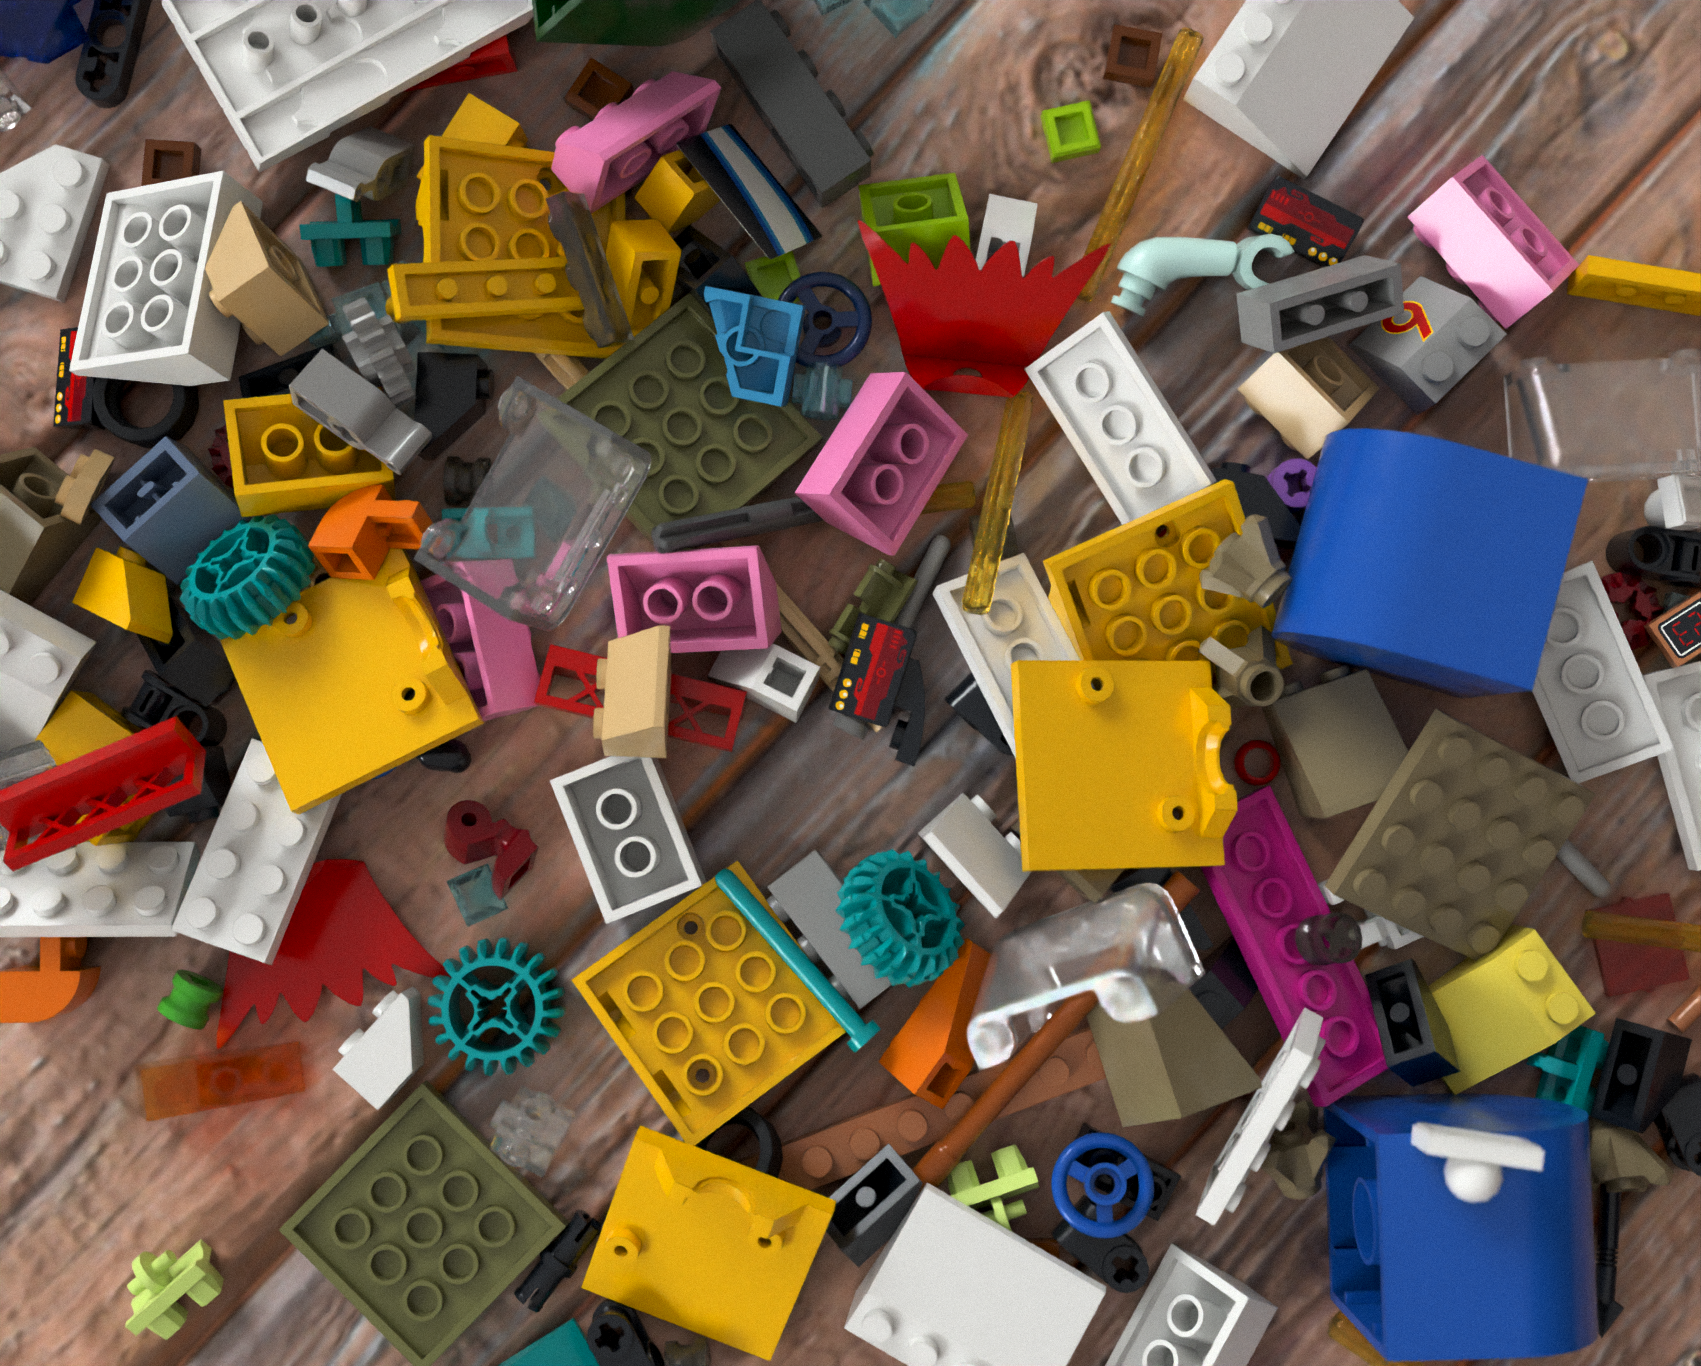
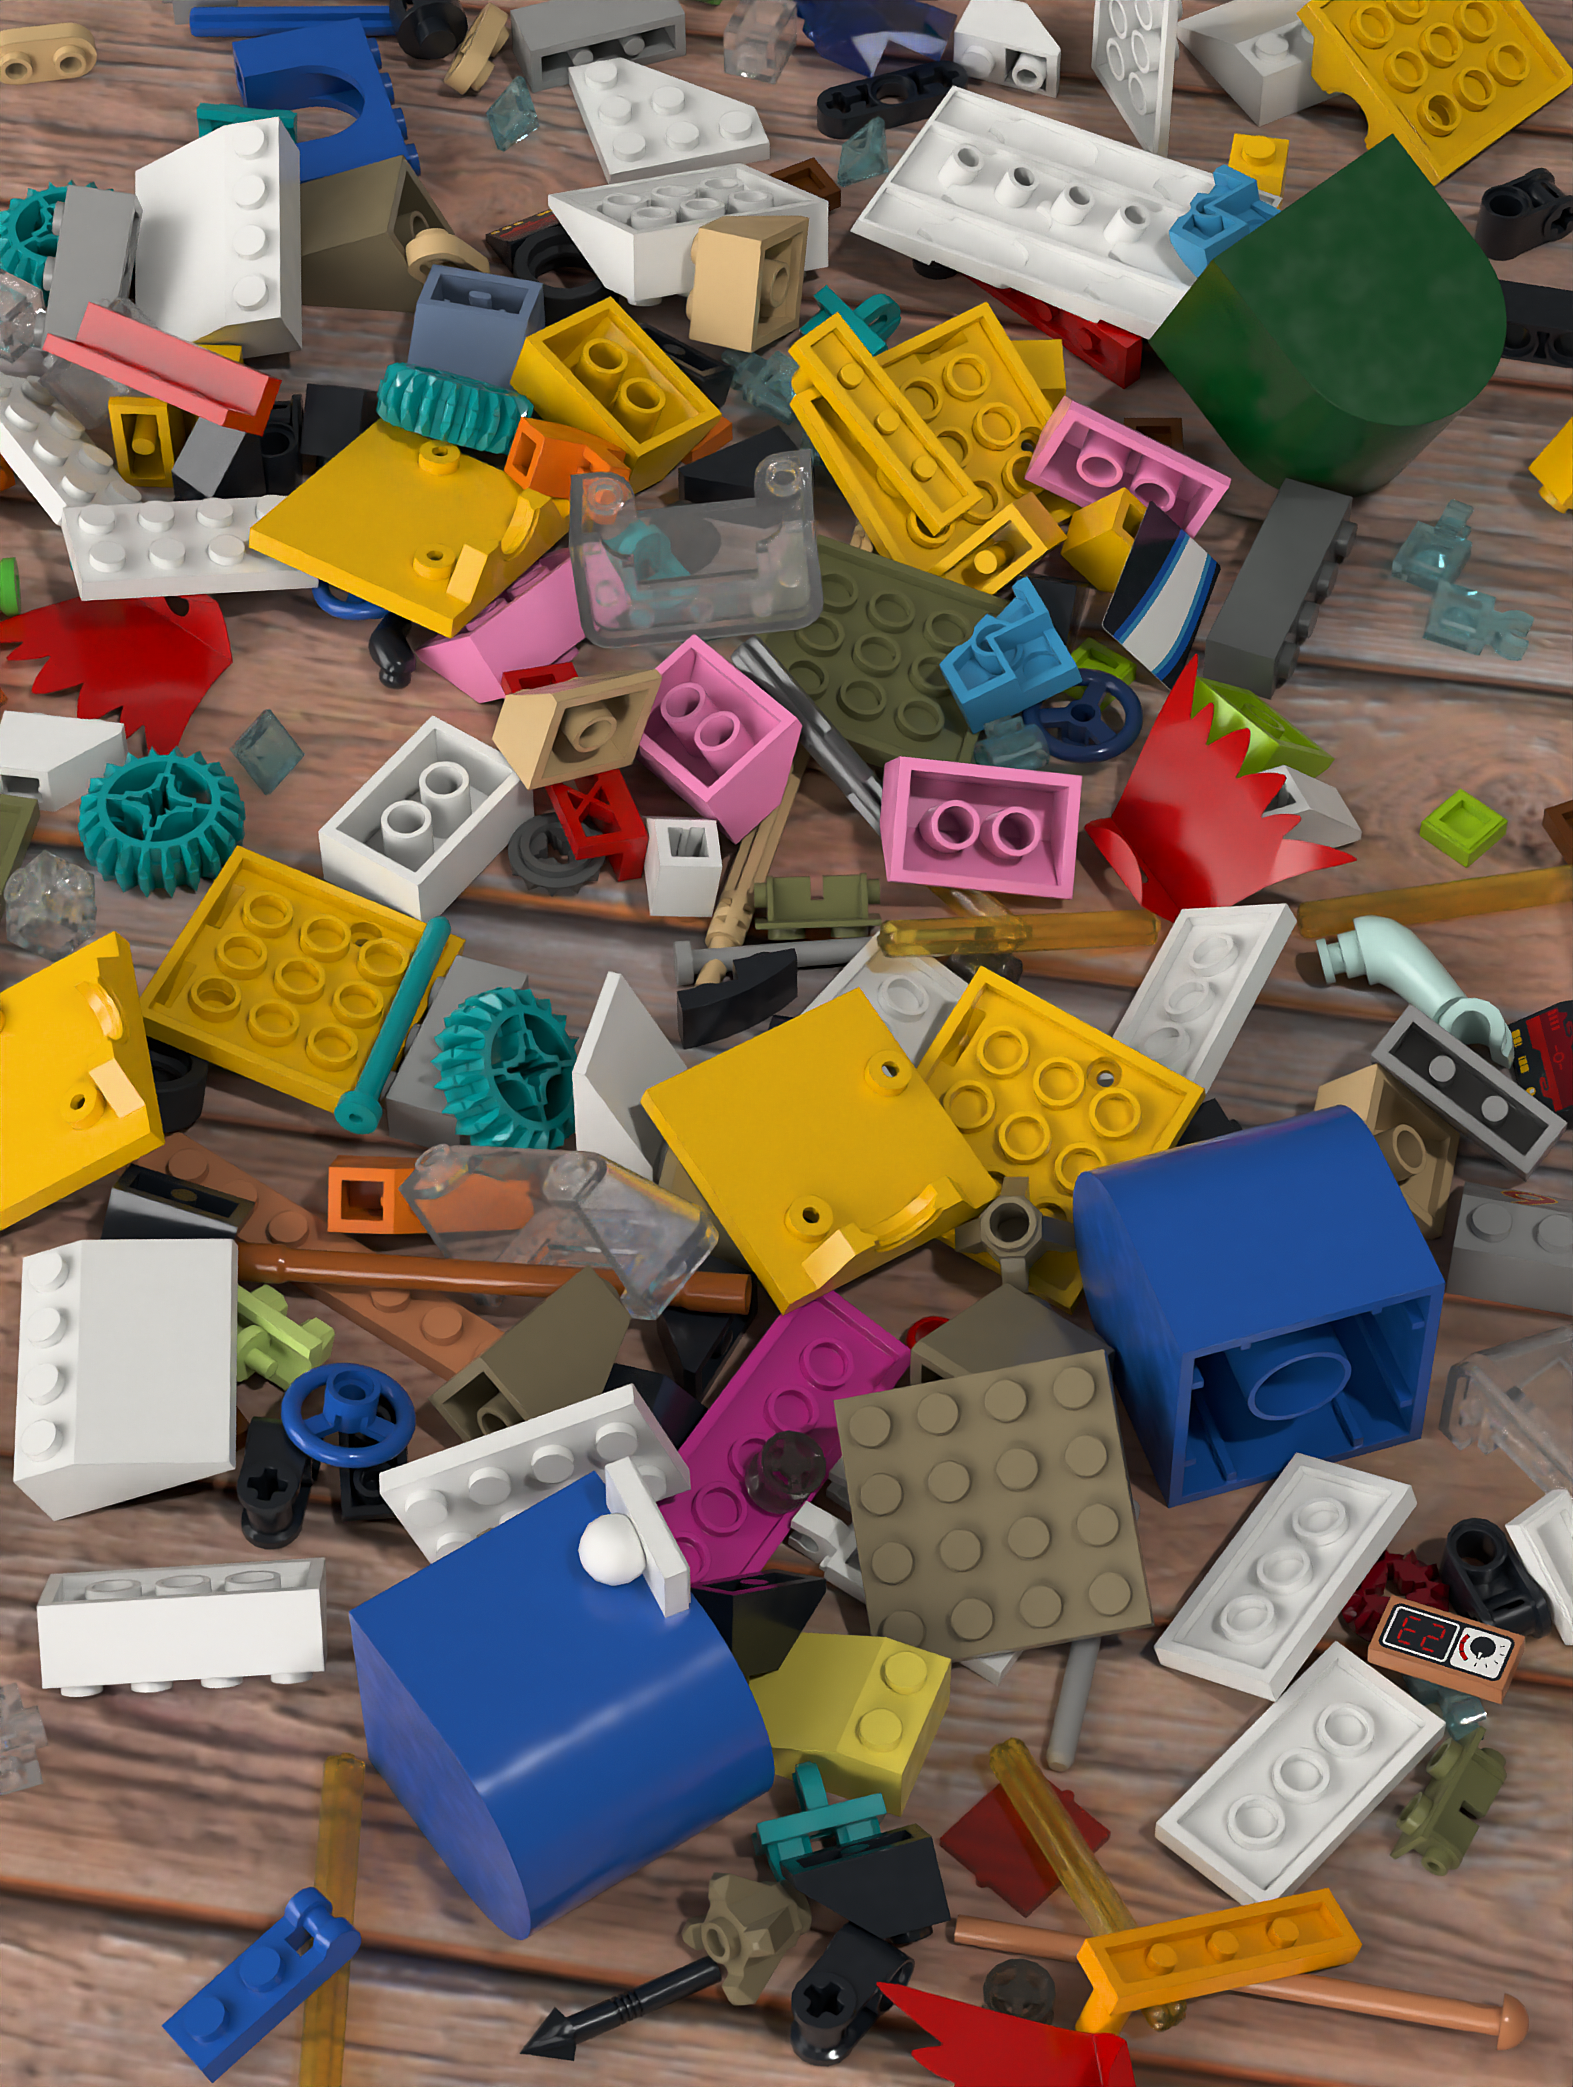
camera: 55 degrees right, 35 degrees down
(126, 593) = (368, 340): yellow slope -> none
(159, 97) = (864, 154): none -> clear light blue slope
(357, 412) = (680, 389): light grey piece -> none
(365, 165) = (915, 285): light grey piece -> none
(379, 351) = (751, 384): light grey gear -> none
(473, 837) = (327, 730): dark red leg -> none
(588, 269) = (966, 488): clear smoke plate -> none
(712, 769) = (530, 855): none -> dark grey gear
(873, 670) = (755, 922): slope -> none
(1248, 565) = (1124, 1120): dark tan rock -> none

